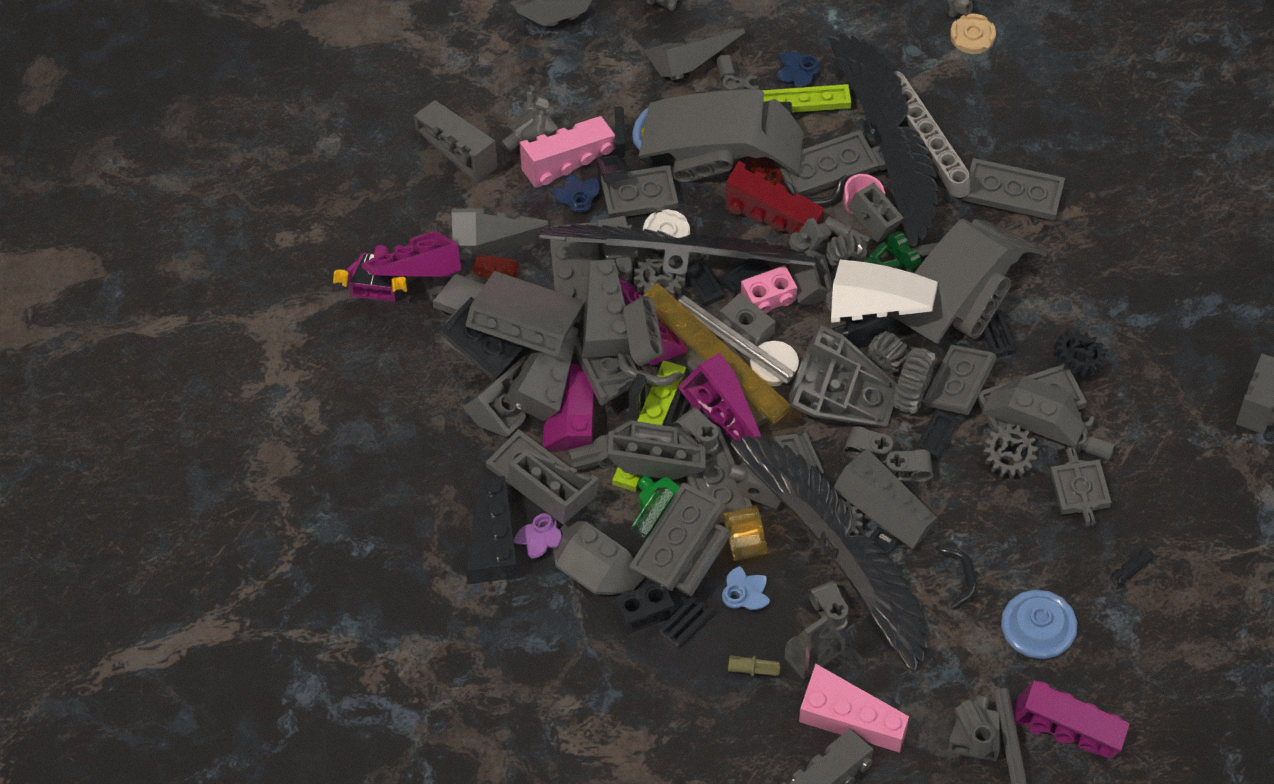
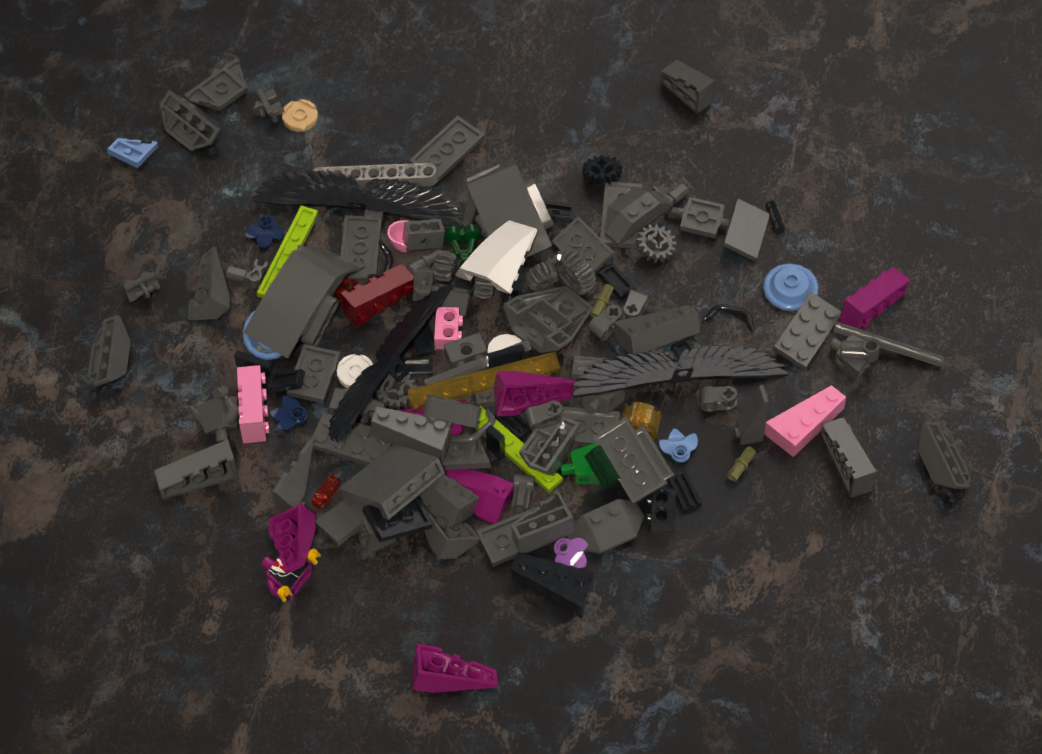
camera: 65 degrees left, 0 degrees up
(329, 474) = (441, 672): none -> magenta wedge
(756, 359) = (505, 356): none -> black tile
(897, 430) = (602, 301): none -> olive axle
(982, 664) = (807, 330): none -> dark grey plate
(1089, 539) = (746, 229): none -> dark grey tile

